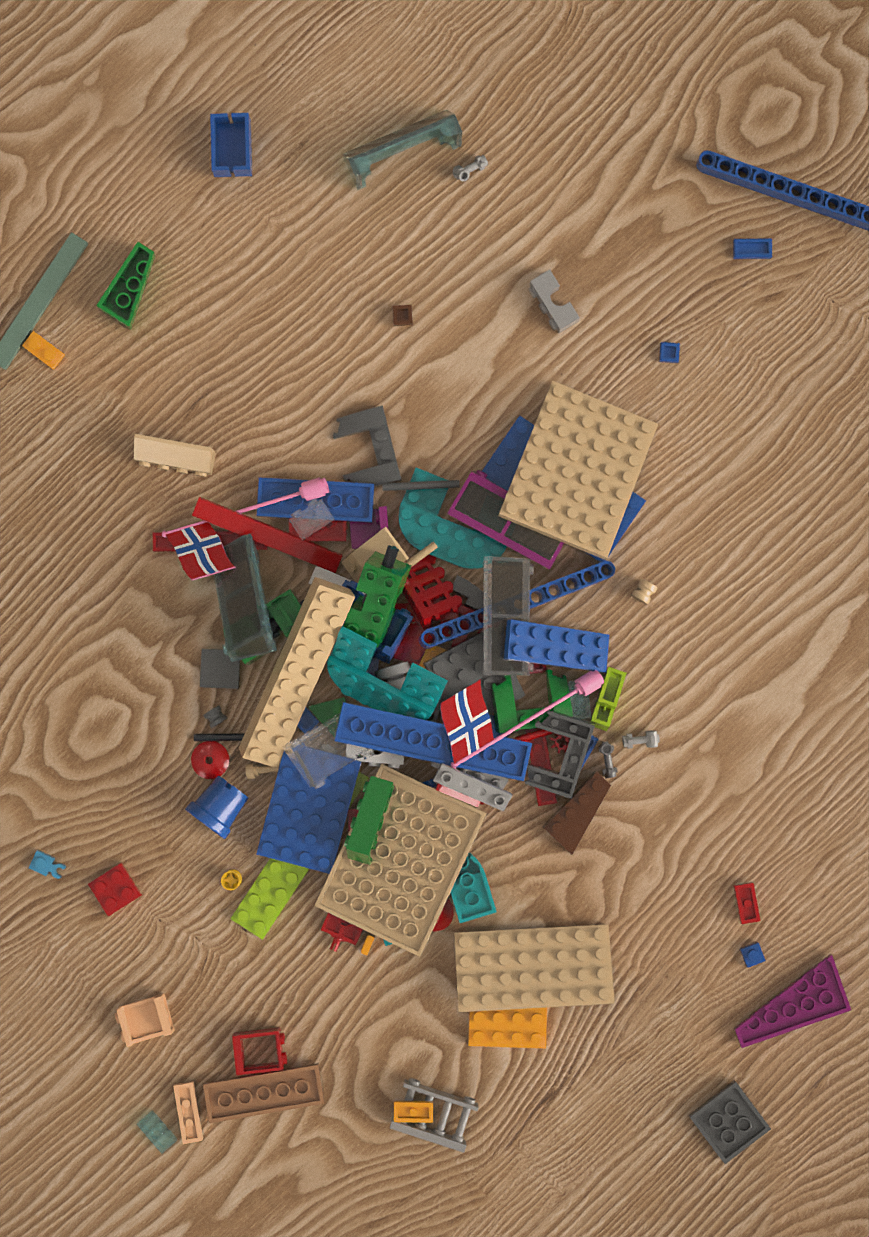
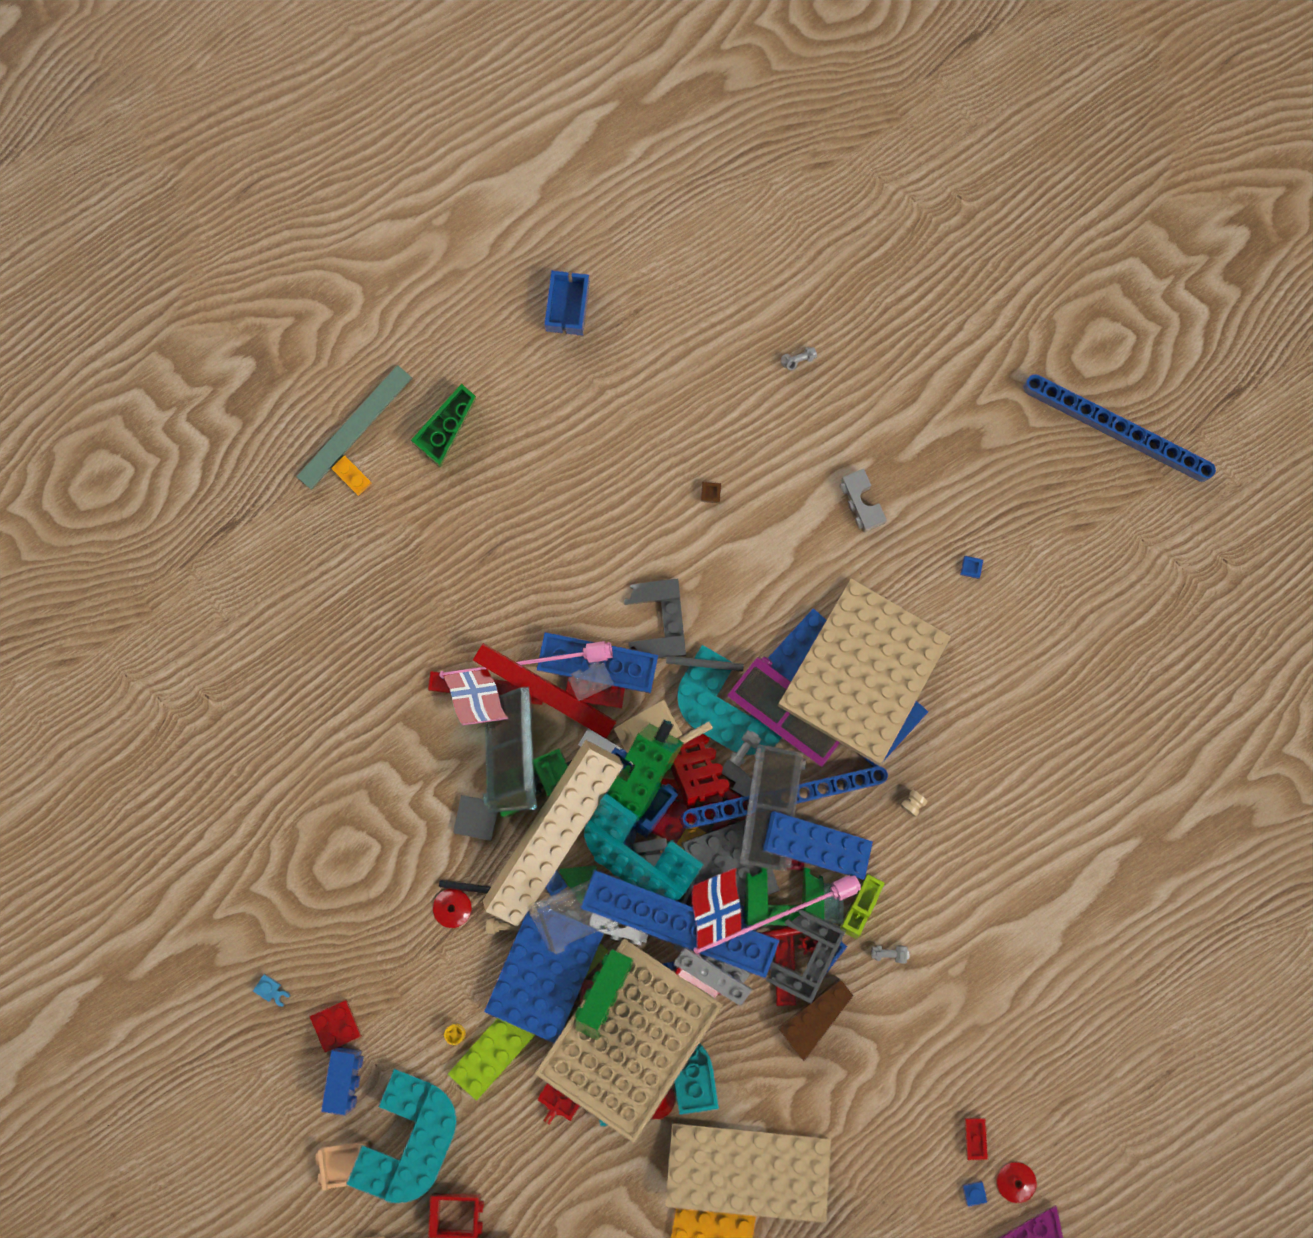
camera: 15 degrees right, 5 degrees down
(129, 941) = (342, 1081): none -> blue piece
(174, 455) = (464, 598): tan slope -> none
(215, 716) = (464, 865): dark grey wheel -> none
(218, 806) = (453, 957): blue piece -> none
(220, 992) = (426, 1148): none -> teal plate
(364, 531) = (640, 701): magenta bracket -> none
(367, 943) = (582, 1121): light orange tile -> none
(441, 125) = (777, 313): clear light blue windscreen -> none
(476, 553) = (750, 740): none -> light grey bar
(607, 749) = (854, 958): flat silver bar -> none
(752, 248) = (1068, 476): blue tile -> none
(784, 931) = (1009, 1175): none -> red dish

